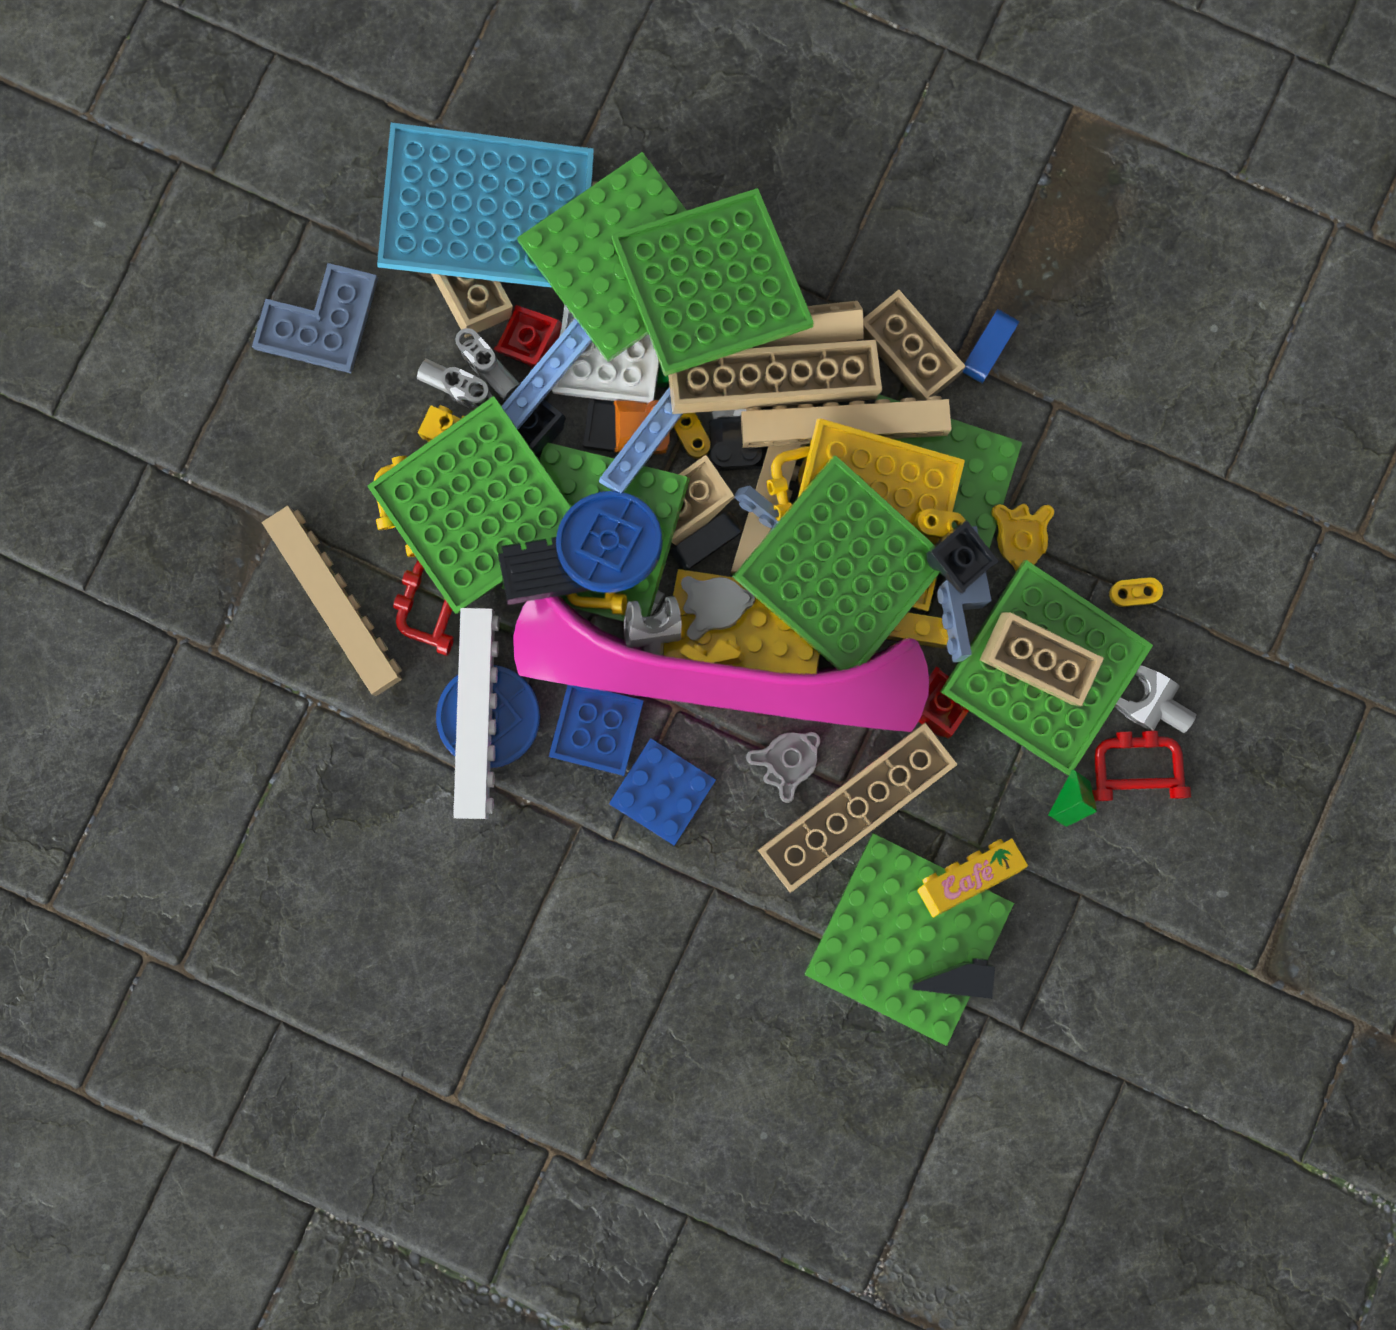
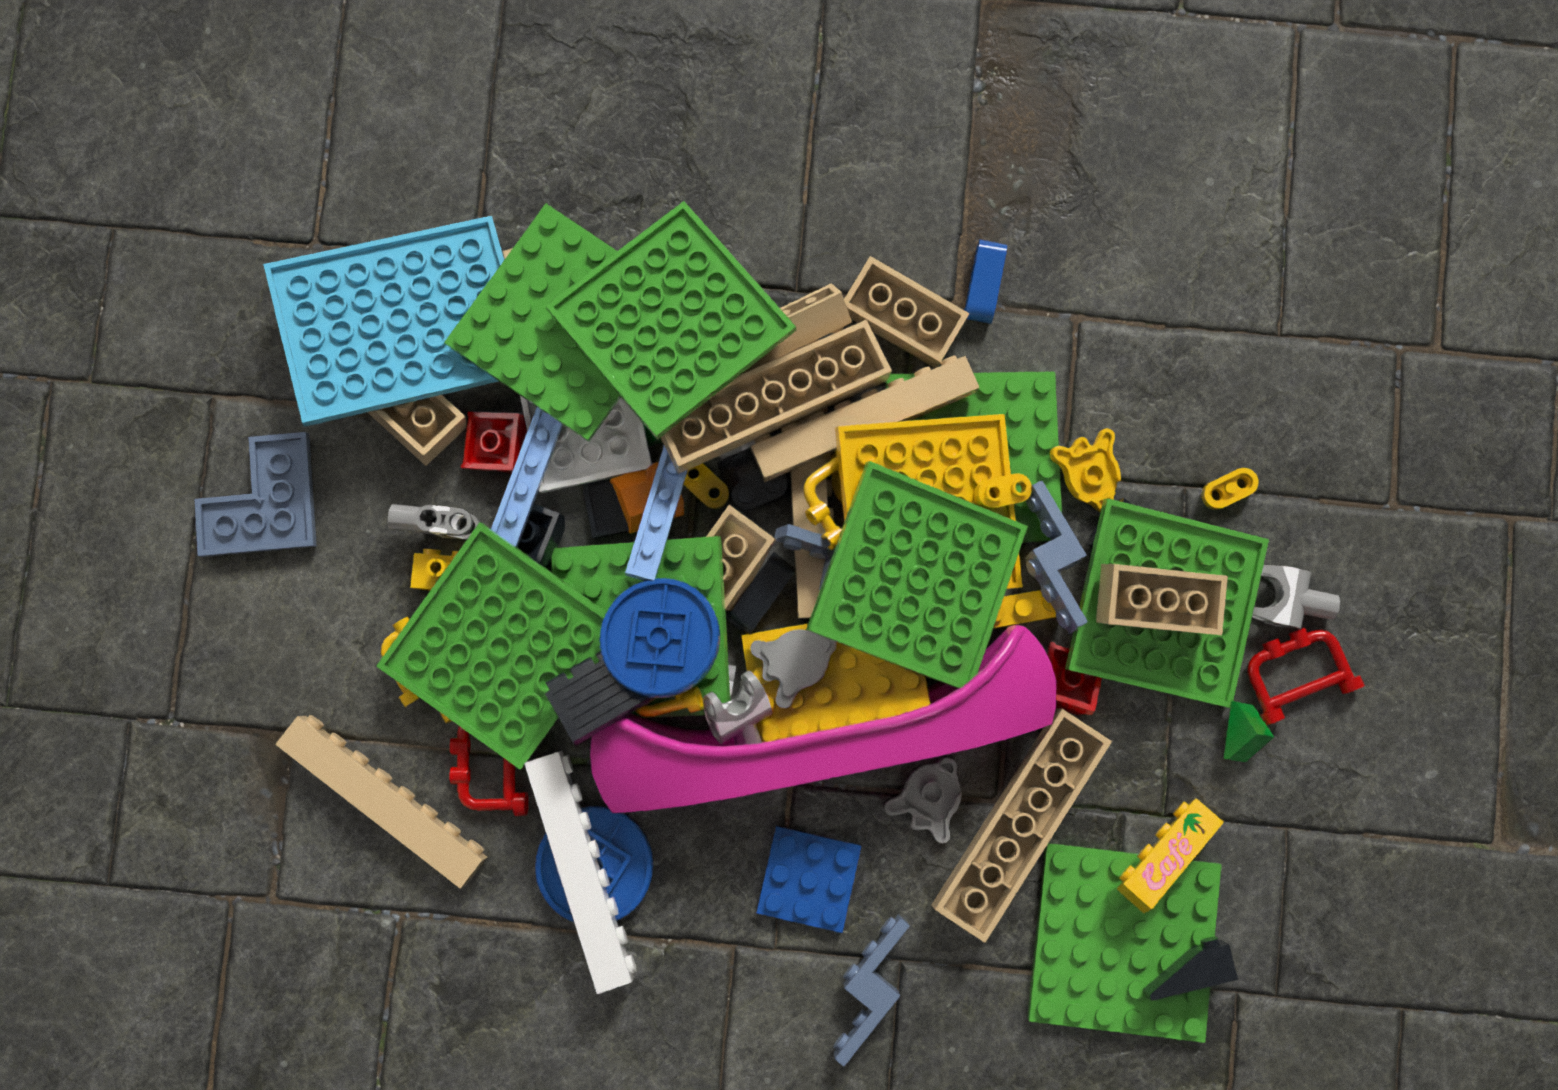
camera: 25 degrees left, 0 degrees up
(485, 364) = (471, 493): light grey connector -> none
(596, 729) = (715, 841): blue plate -> none
(680, 899) = (870, 989): none -> sand blue bracket
(722, 653) = (822, 715): yellow slope -> none
(961, 556) = (1039, 521): black slope -> none

